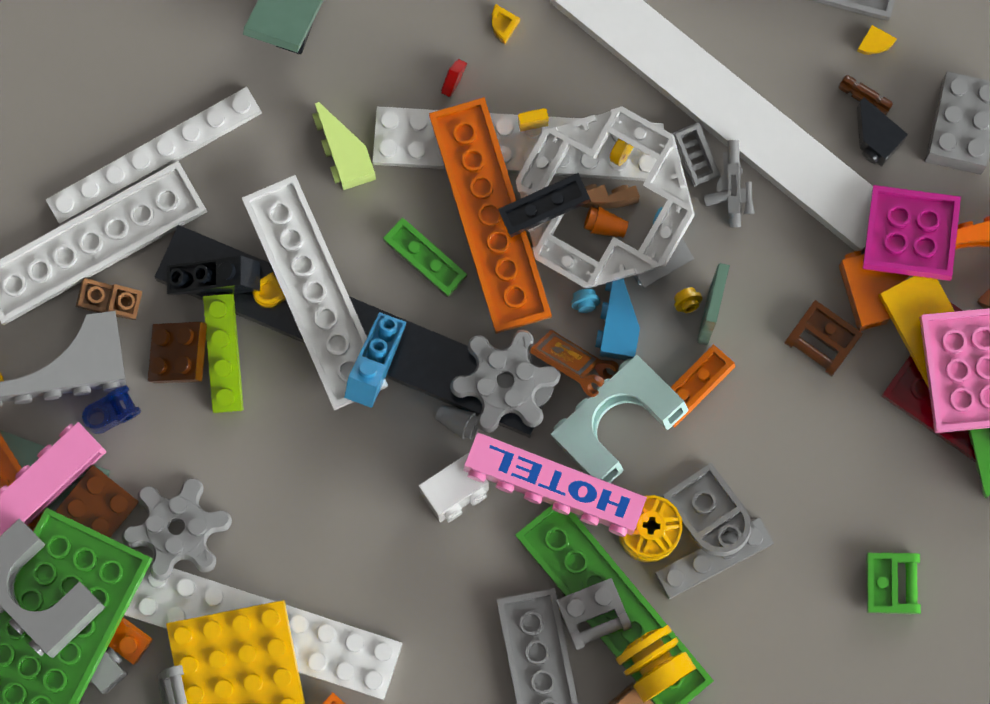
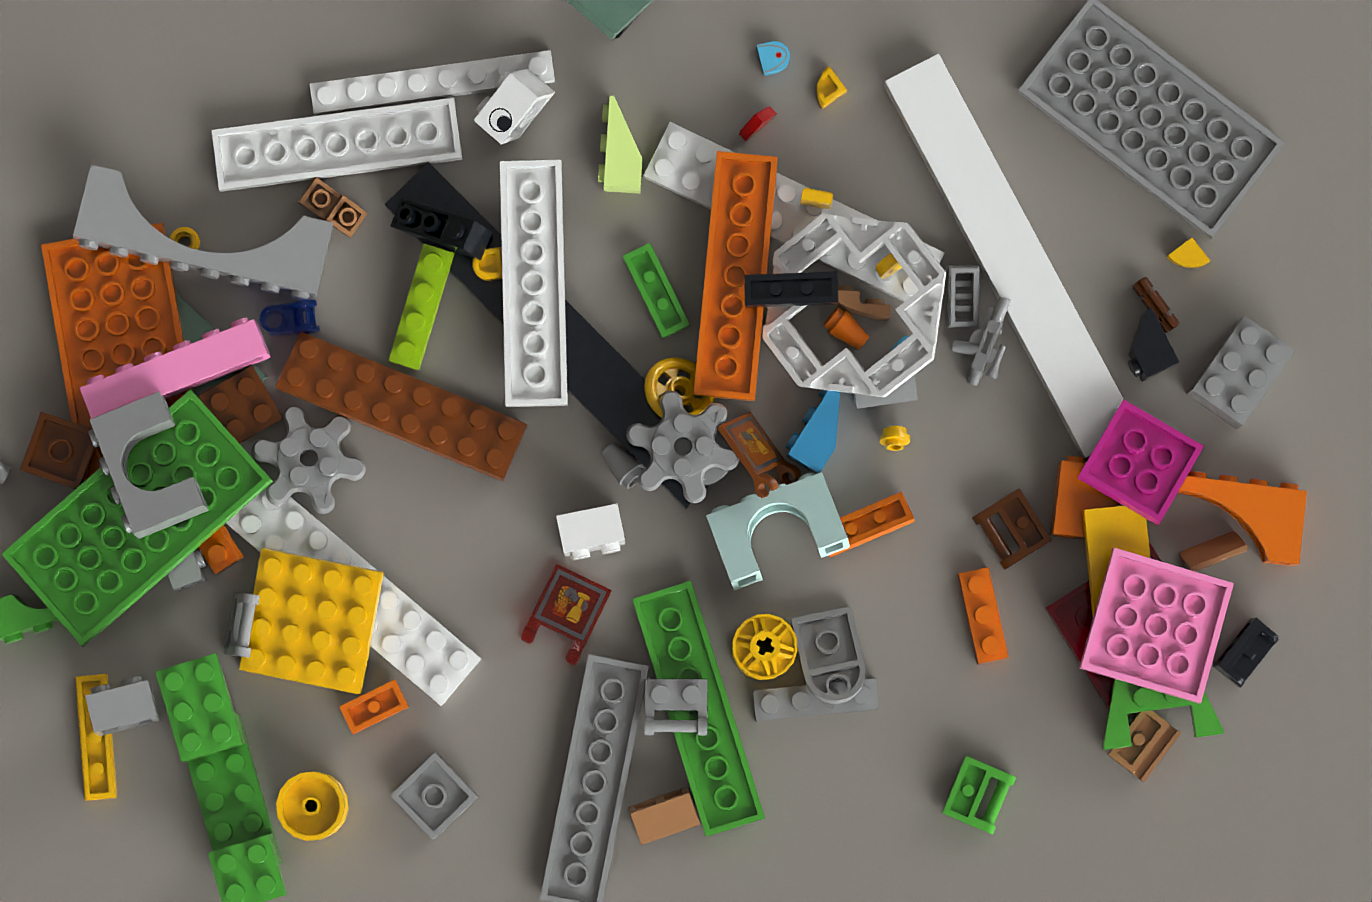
camera: 15 degrees right, 5 degrees up
(177, 352) = (377, 287): reddish brown plate -> none
(233, 144) = (513, 105): none -> white brick
(240, 448) = (401, 406): none -> dark orange plate
(374, 360) = (563, 375): dark azure slope -> none
(444, 16) = (773, 57): none -> medium azure tile
(462, 566) = (568, 607): none -> clear red flag
(484, 328) = (670, 368): none -> yellow plate
(554, 484) = (687, 568): bright pink brick -> none
(585, 300) = (794, 397): medium azure plate -> none
(655, 663) = (714, 780): yellow wheel -> none
(713, 303) = (914, 454): sand green tile -> none
(830, 424) = (983, 615): none -> orange plate

